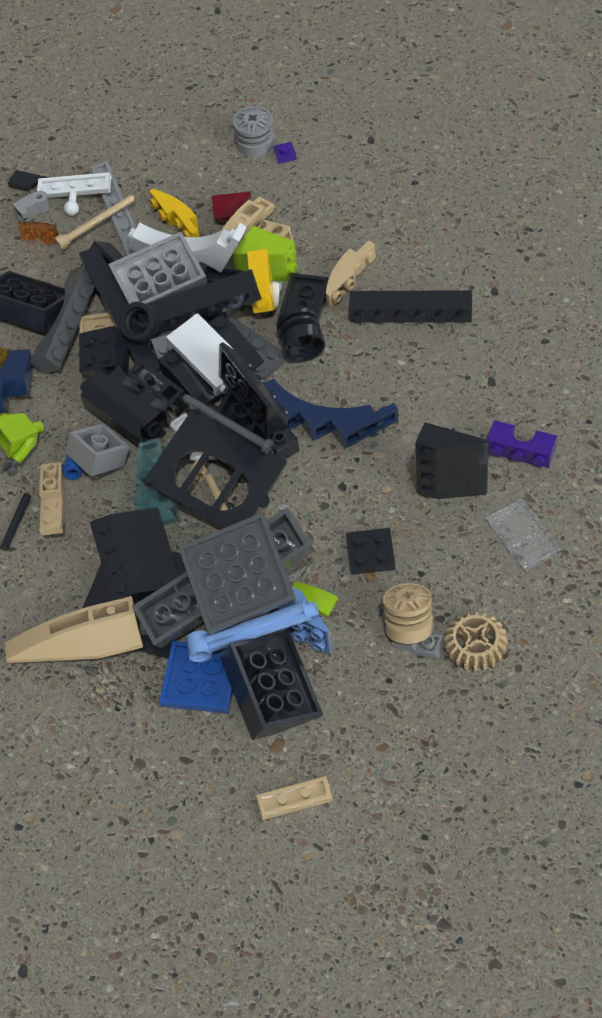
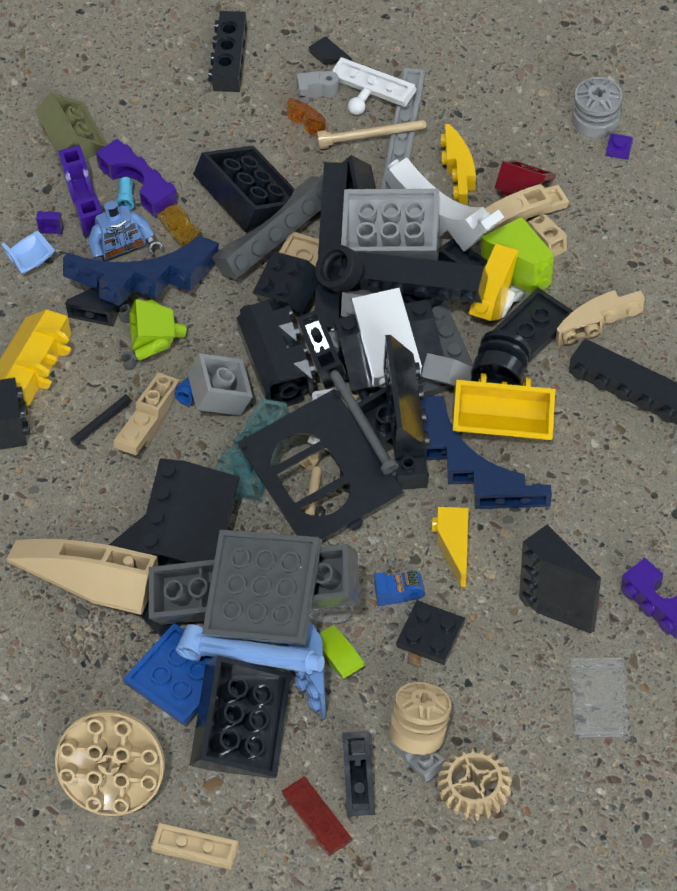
camera: 25 degrees right, 0 degrees up
(192, 768) = (109, 762): none -> tan bracket
(266, 359) = (445, 370): none -> light grey slope
(323, 366) = (503, 409): none -> yellow piece
(326, 531) = (398, 587): none -> blue leg
(346, 477) = (453, 538): none -> yellow slope
(372, 726) = (316, 816): none -> clear red tile
(384, 677) = (358, 773): none -> black slope

